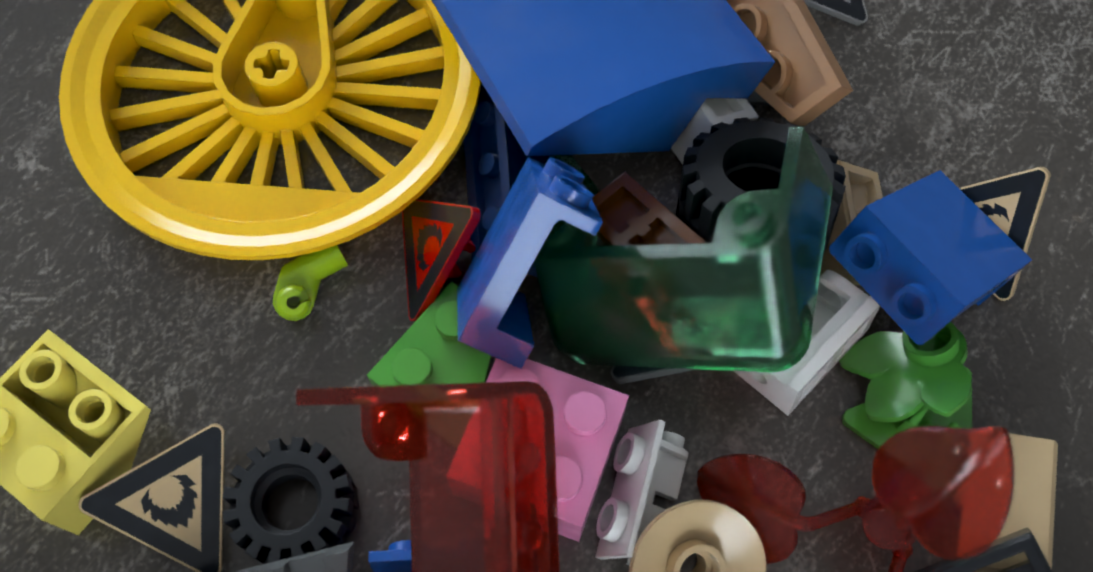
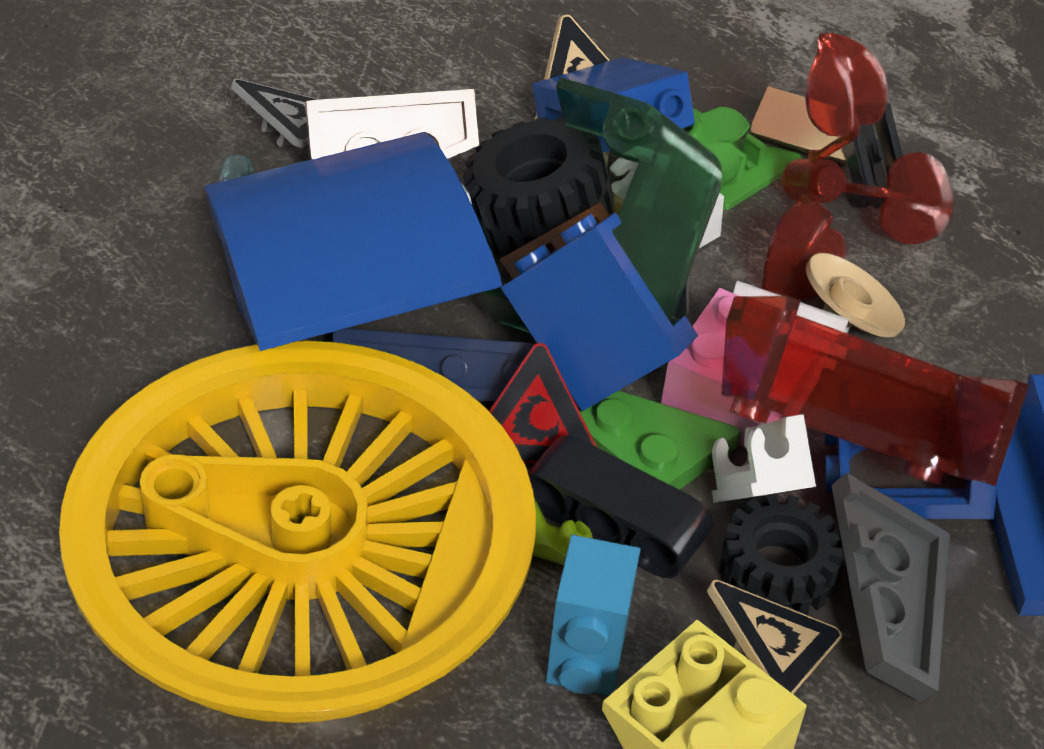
camera: 85 degrees left, 20 degrees down
(156, 311) = (591, 615): none -> dark azure brick
(336, 333) = (620, 504): none -> black beam
(341, 470) = (775, 462): none -> white hinge

